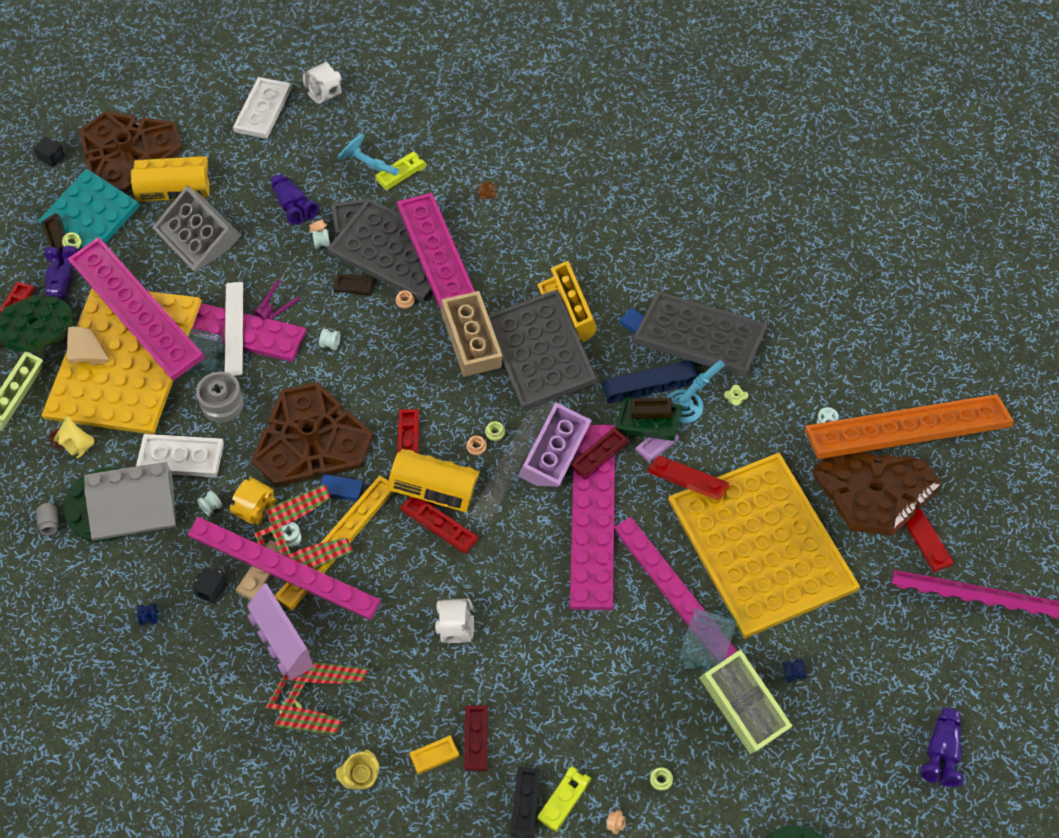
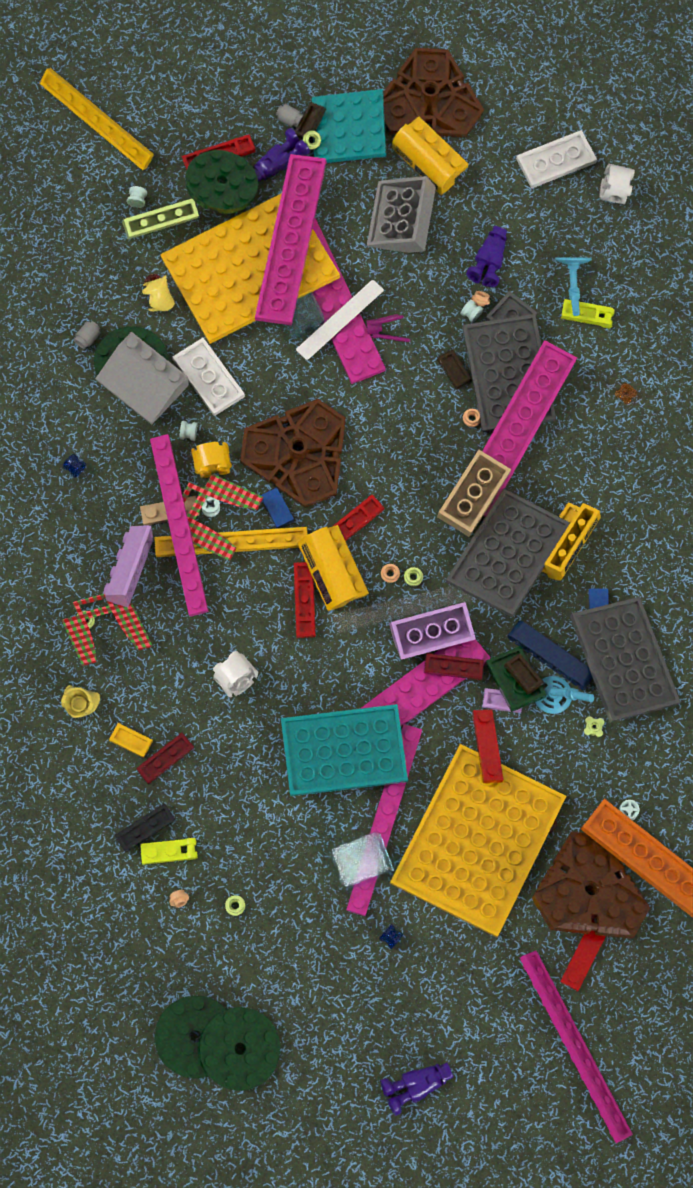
camera: 45 degrees right, 15 degrees up
(34, 245) = (289, 115): none -> light grey brick
(49, 151) = (378, 46): black brick -> none
(84, 347) = (231, 234): tan slope -> none
(209, 584) = (128, 486): black brick -> none
(220, 396) = (275, 361): light grey wheel -> none
(329, 339) = (389, 394): light aqua wheel -> none
(598, 585) = (344, 750): none -> teal plate
(745, 701) = (332, 920): clear brick -> none

